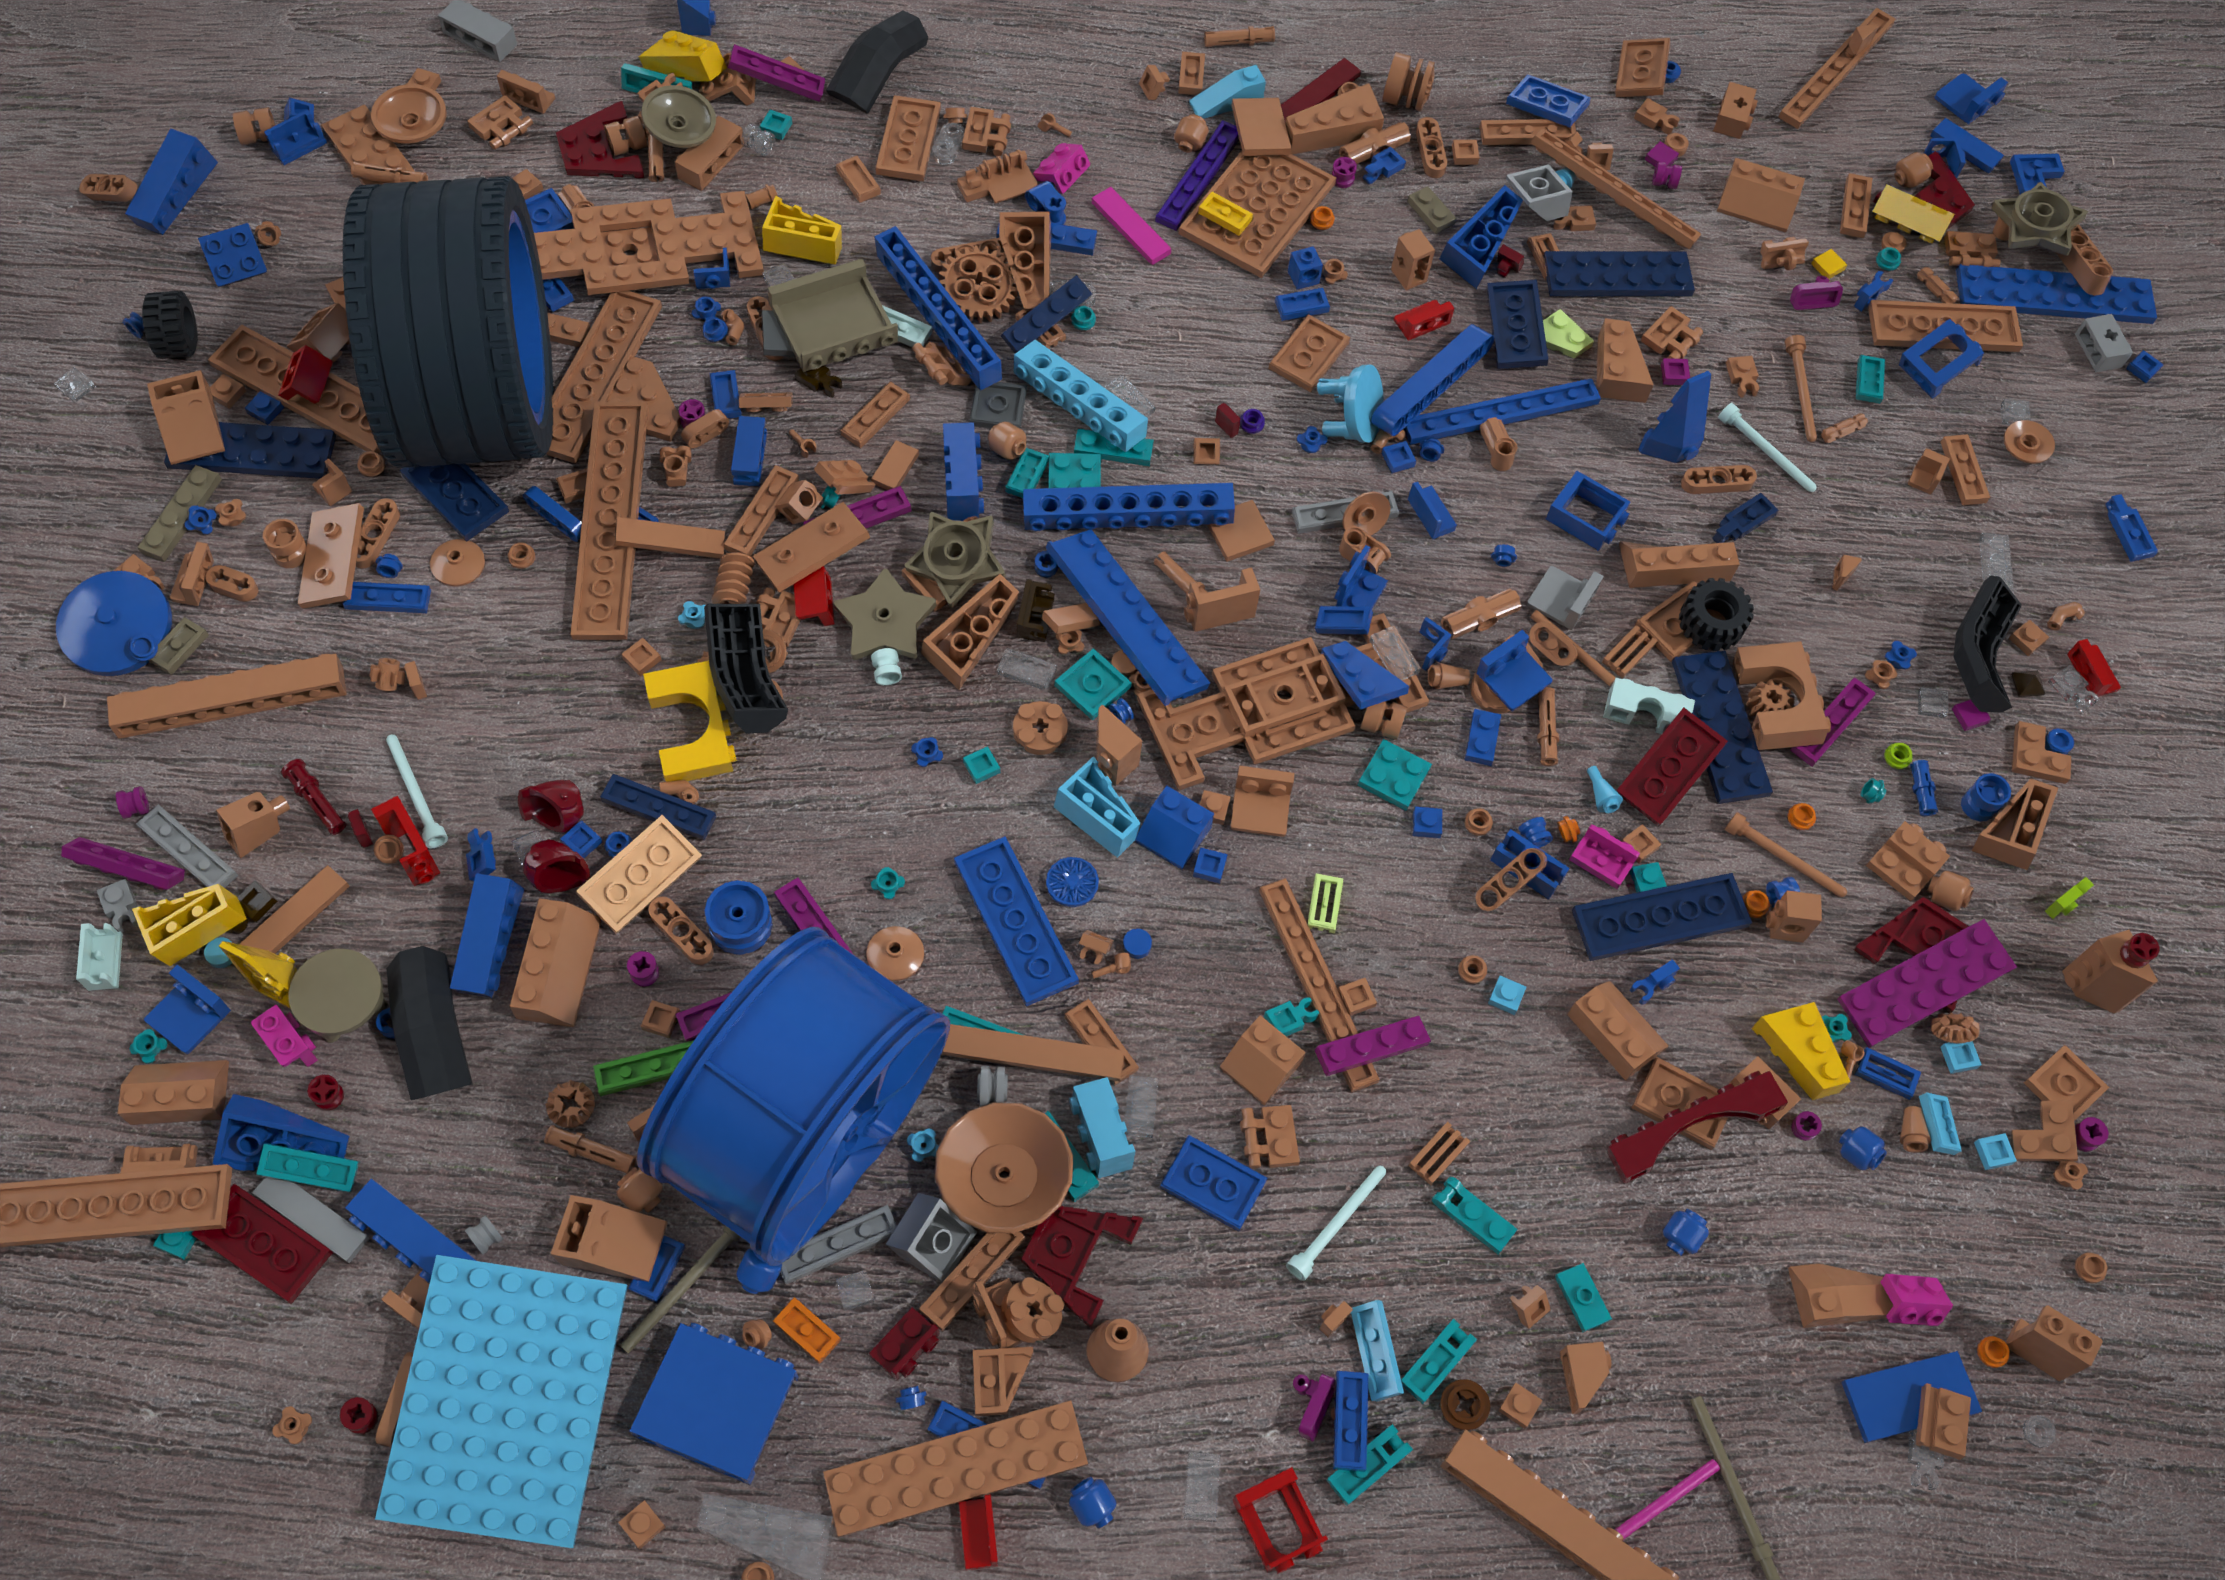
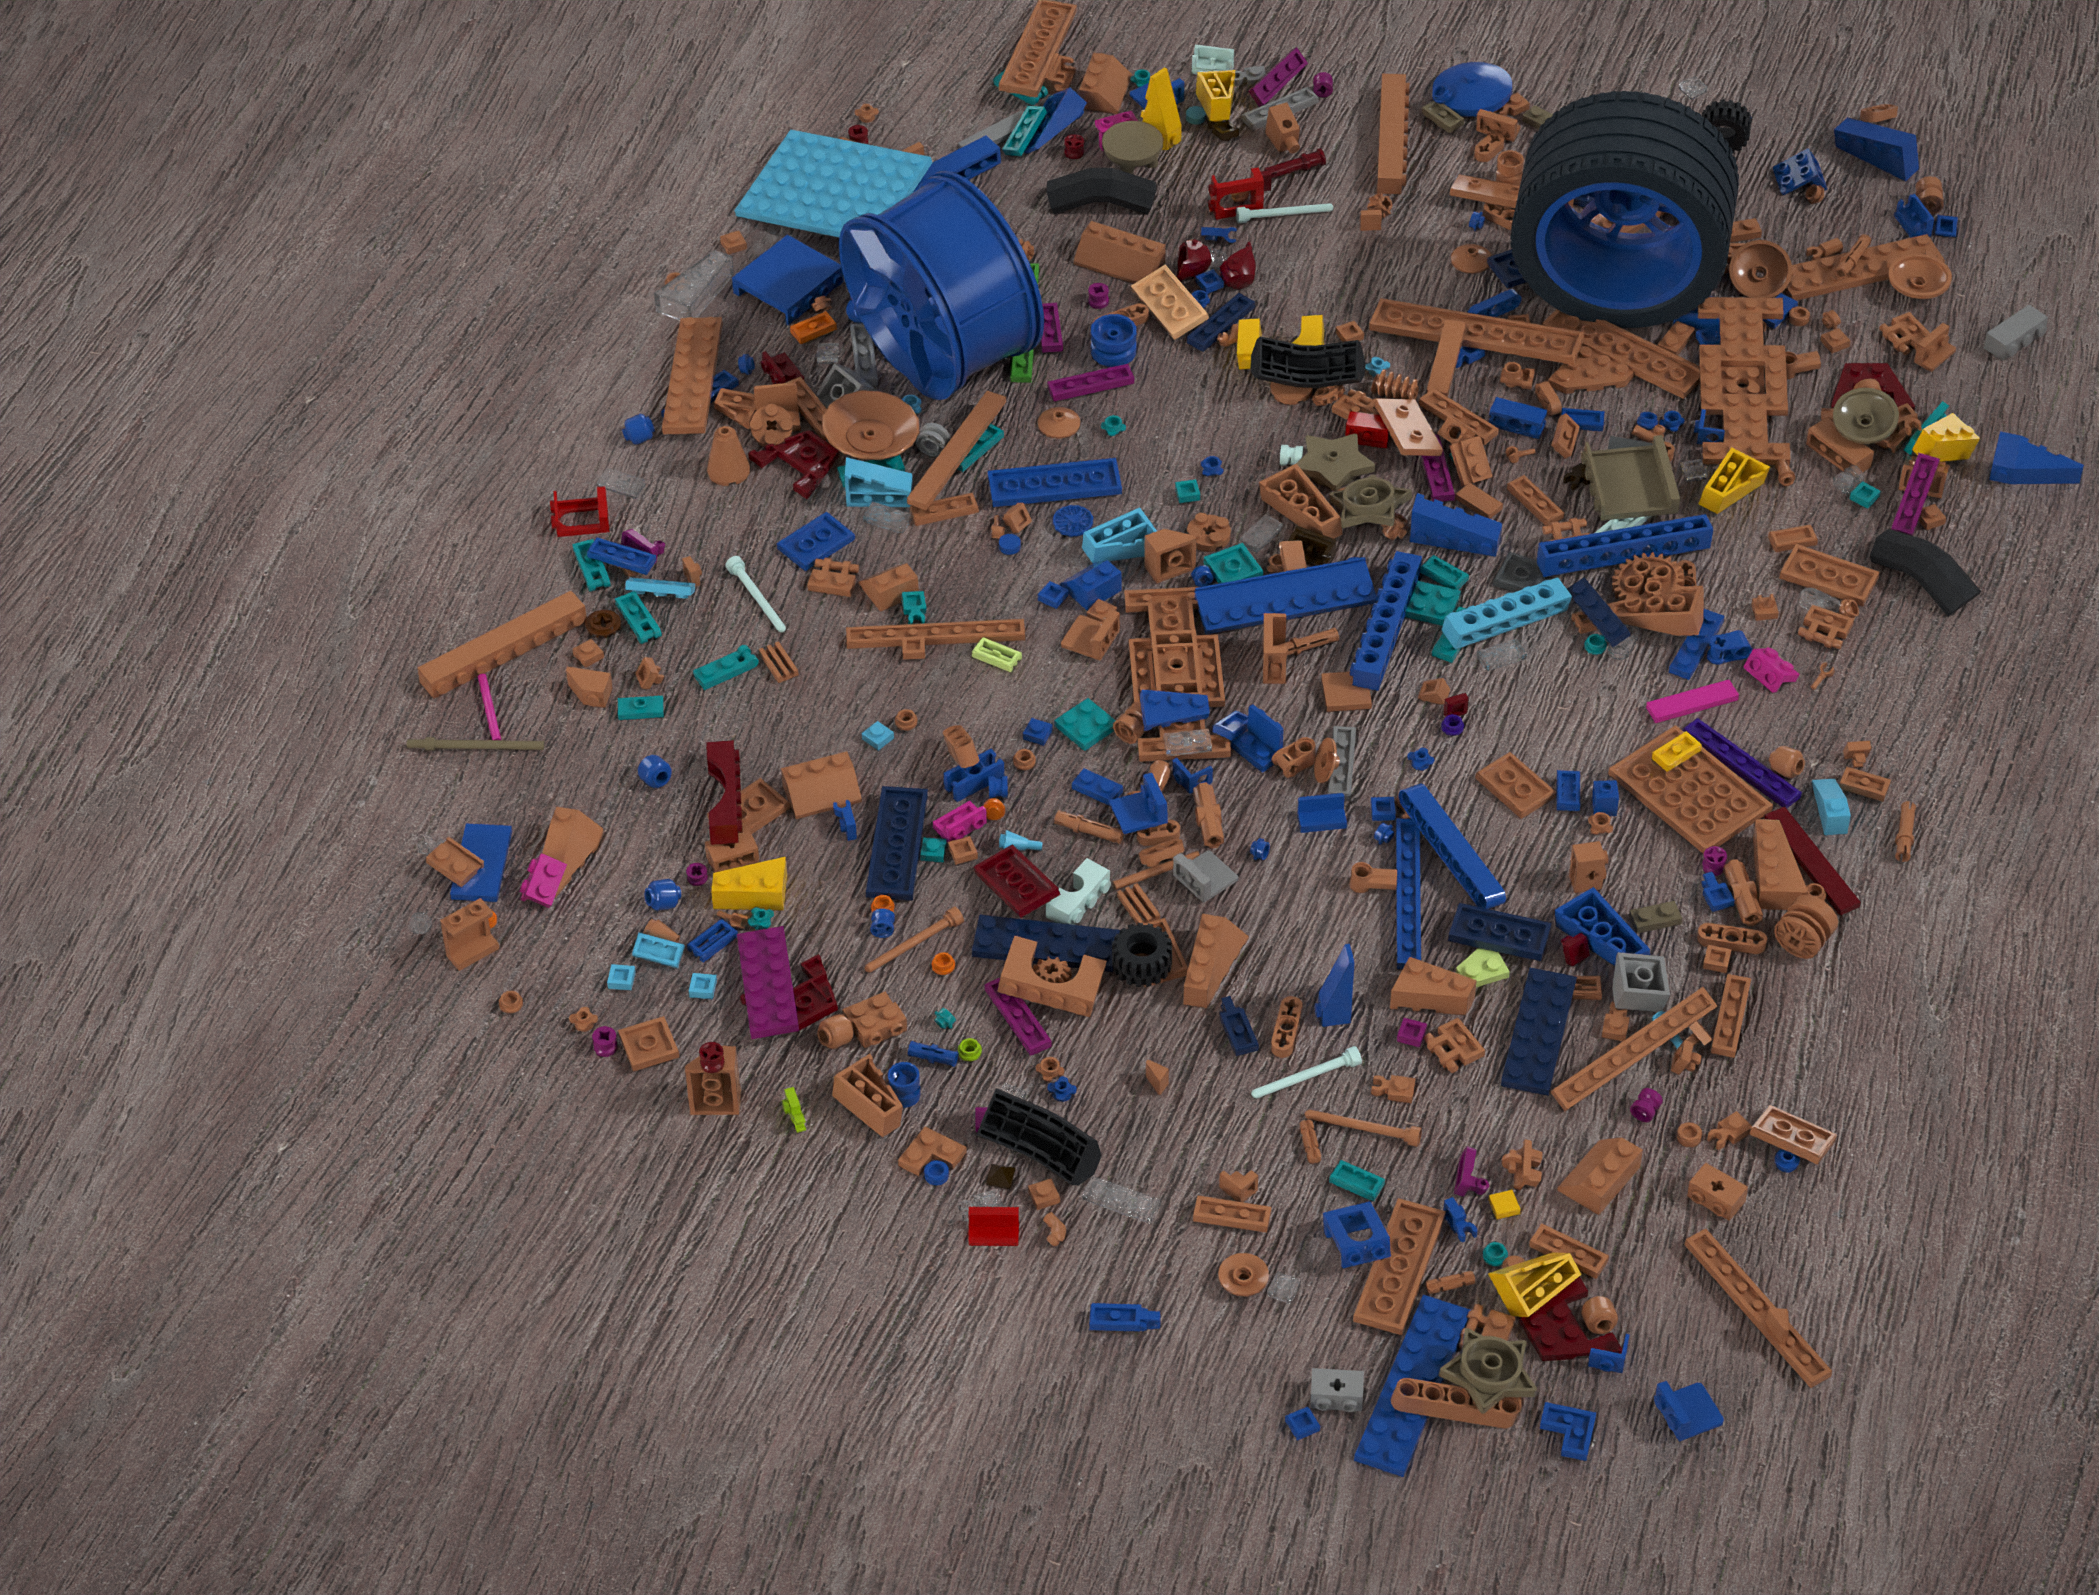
camera: 115 degrees right, 15 degrees down
(266, 1245) = (984, 111): dark red plate -> none
(297, 911) = (1210, 149): nougat tile -> none
(389, 597) = (1451, 219): blue tile -> none
(425, 78) = (1965, 298): nougat plate -> none
(486, 935) = (1155, 222): blue wedge -> none
(518, 550) = (1463, 287): nougat plate -> none
(548, 212) = (1796, 338): blue plate -> none
(660, 1019) = (1063, 300): nougat tile -> none
(690, 408) = (1565, 393): magenta wheel -> none
(978, 1533) = (647, 380): red panel -> none
(1007, 176) = (1769, 630): nougat hinge -> none
(1007, 440) = (1477, 562): nougat head -> none
(1261, 126) = (1790, 806): nougat tile -> none
(1322, 218) = (1664, 832): orange plate -> none
(1361, 397) = (1438, 772): medium azure piece -> none
(1372, 1045) = (871, 643): magenta plate -> none
(1424, 318) = (1529, 872): red panel -> none
(1548, 100) = (1765, 1040): blue tile -> none
(1597, 495) = (1297, 901): blue window -> none
(1661, 153) = (1675, 1115): magenta tile -> none
(1794, 916) = (855, 910): nougat brick -> none
(1955, 1028) = (719, 992): nougat gear -> none
(1975, 150) = (1625, 1387): blue tile -> none
(2054, 1141) = (614, 1010): nougat plate -> none

